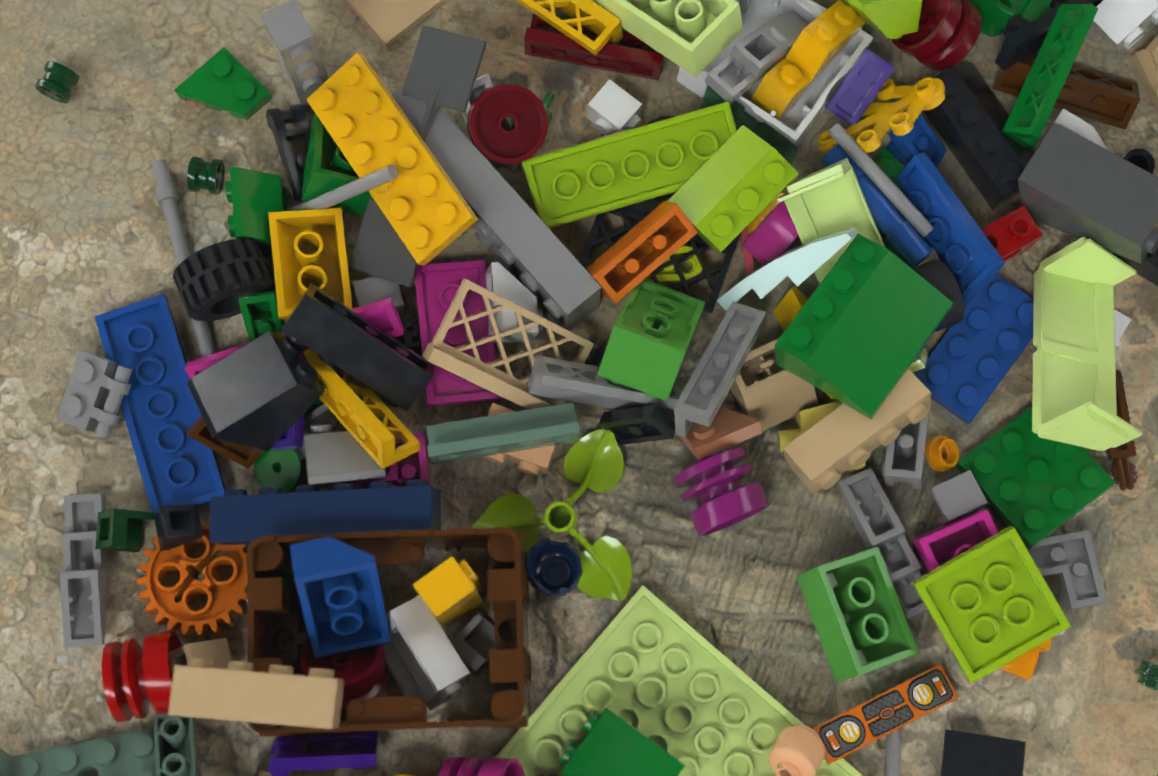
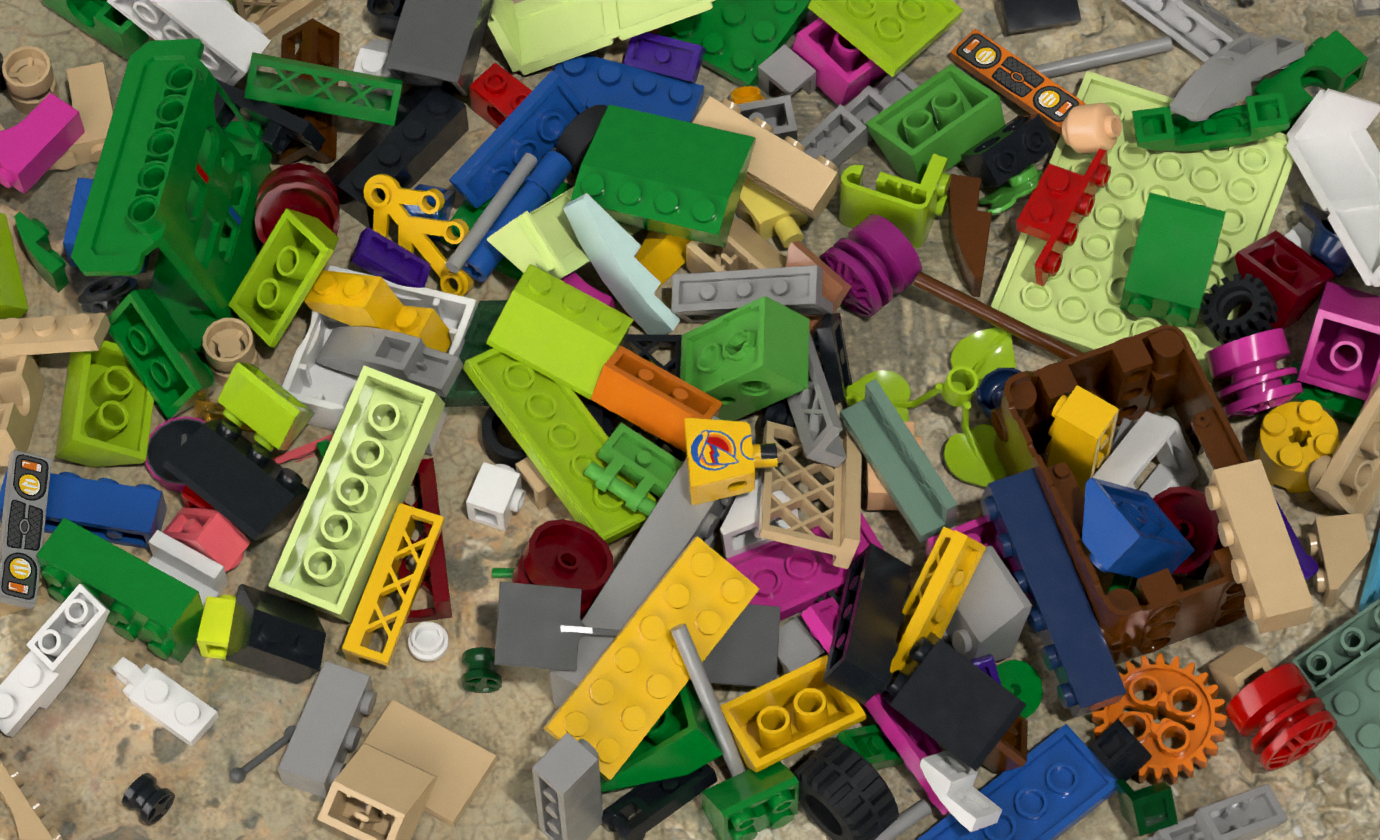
camera: 105 degrees left, 15 degrees down
(173, 376) = (953, 785): none -> white slope
(505, 25) = (428, 641): none -> white plate
(547, 271) = (723, 458): none -> yellow torso
(563, 658) = (995, 317): none -> reddish brown bar
(586, 219) = (640, 461): none -> bright green plate
(721, 686) = (1058, 208): none -> red bracket
(735, 602) = (968, 230): none -> reddish brown slope
(762, 659) = (1007, 194): none -> bright green plate
(772, 539) = (902, 202): none -> lime piece
(805, 670) = (1008, 150): none -> black brick
(1009, 397) = (665, 56): none -> dark purple plate

